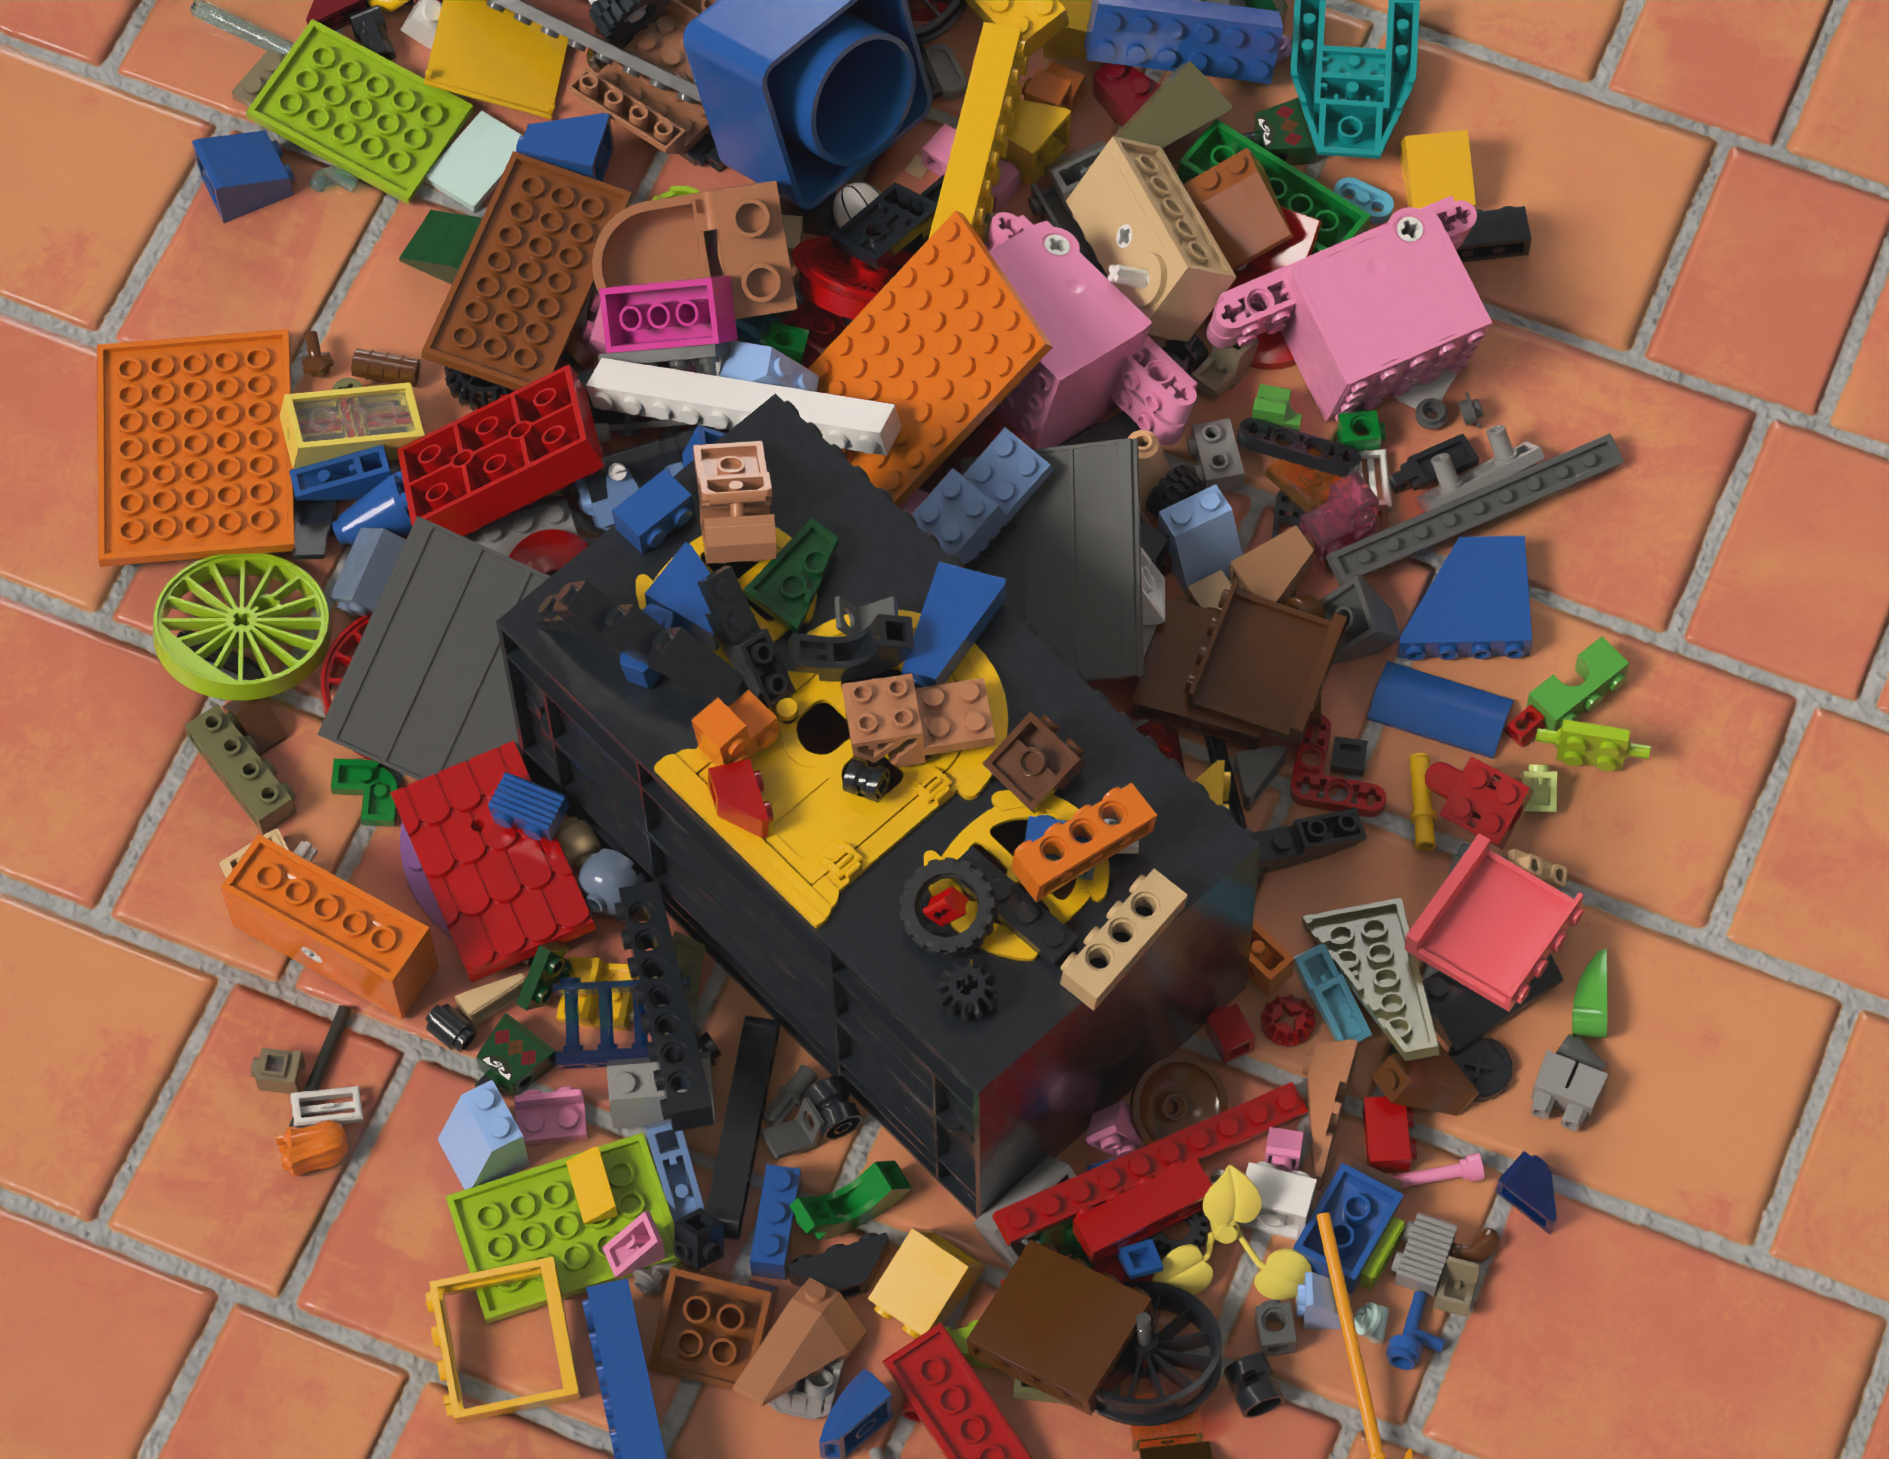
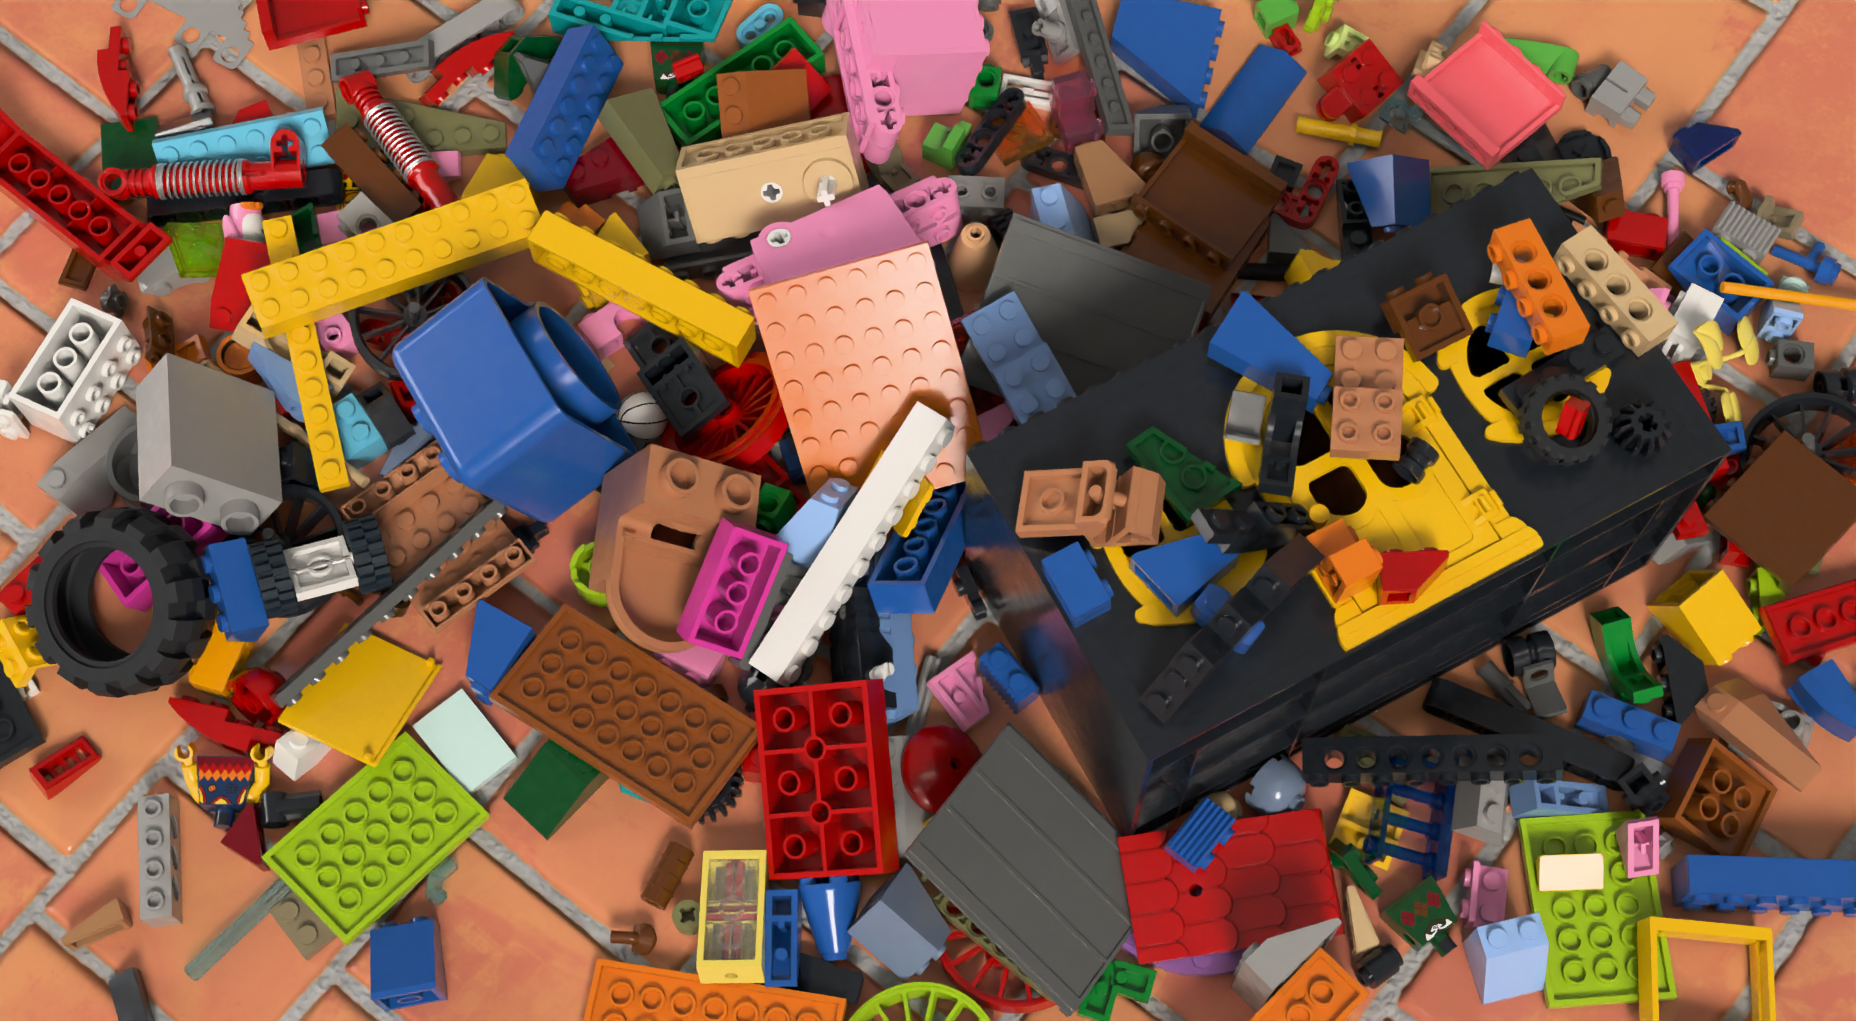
camera: 75 degrees left, 5 degrees up
(401, 884) = (1277, 959): none -> light grey slope
(1273, 136) = (687, 68): none -> red piece
(1345, 862) = (1393, 190): none -> blue slope

